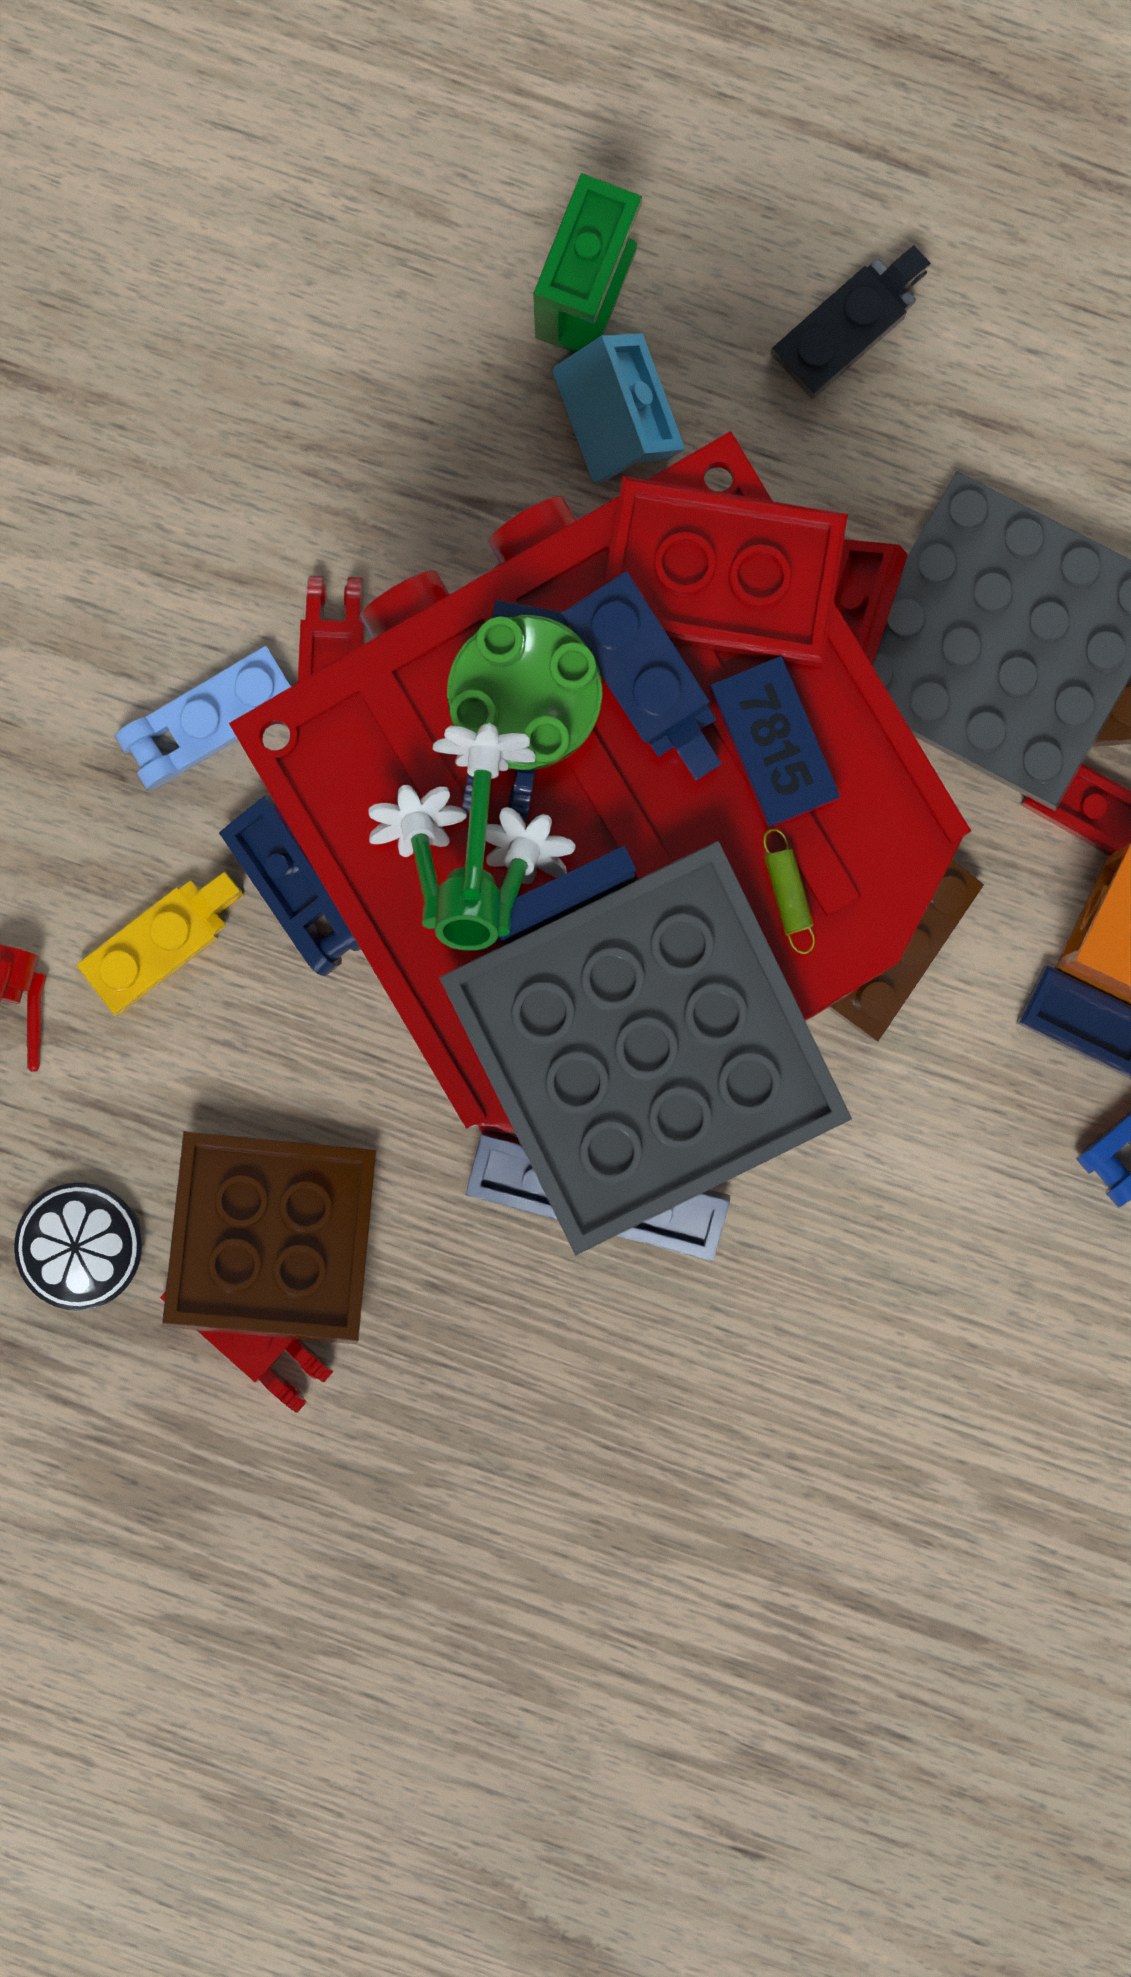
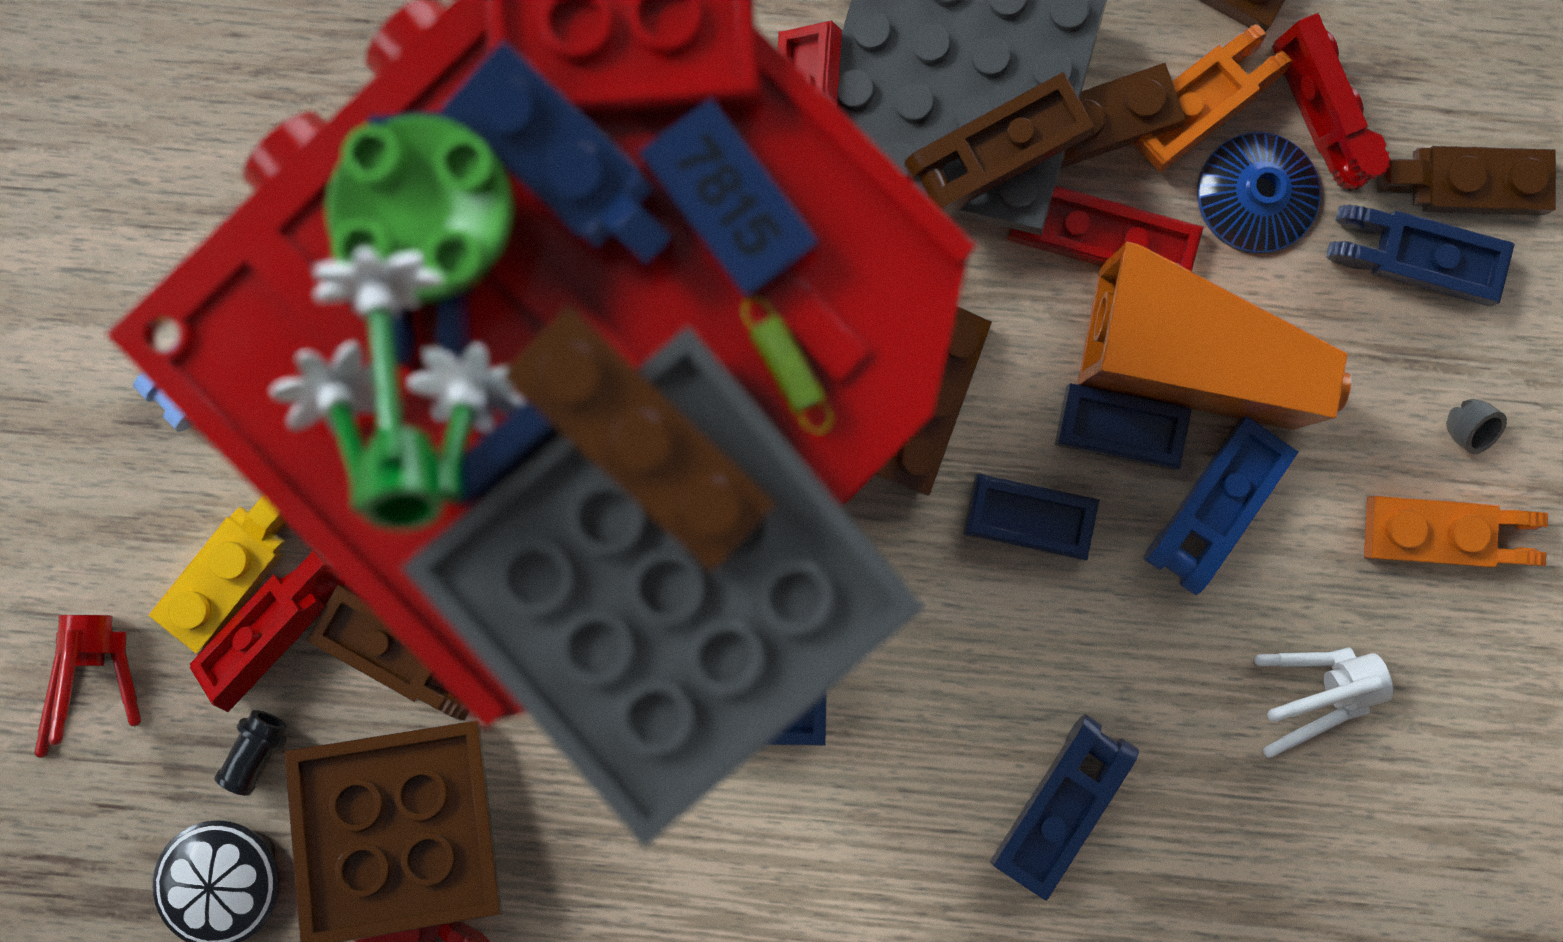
camera: 15 degrees left, 0 degrees up
(145, 1125) = (257, 740): none -> black pin
(188, 1008) = (263, 631): none -> red hinge
(307, 1059) = (366, 643): none -> reddish brown hinge
(658, 923) = (638, 438): none -> reddish brown plate
(933, 1384) = (1064, 809): none -> dark blue plate
(974, 1089) = (1031, 517): none -> dark blue tile
(1034, 714) = (1002, 143): none -> reddish brown plate

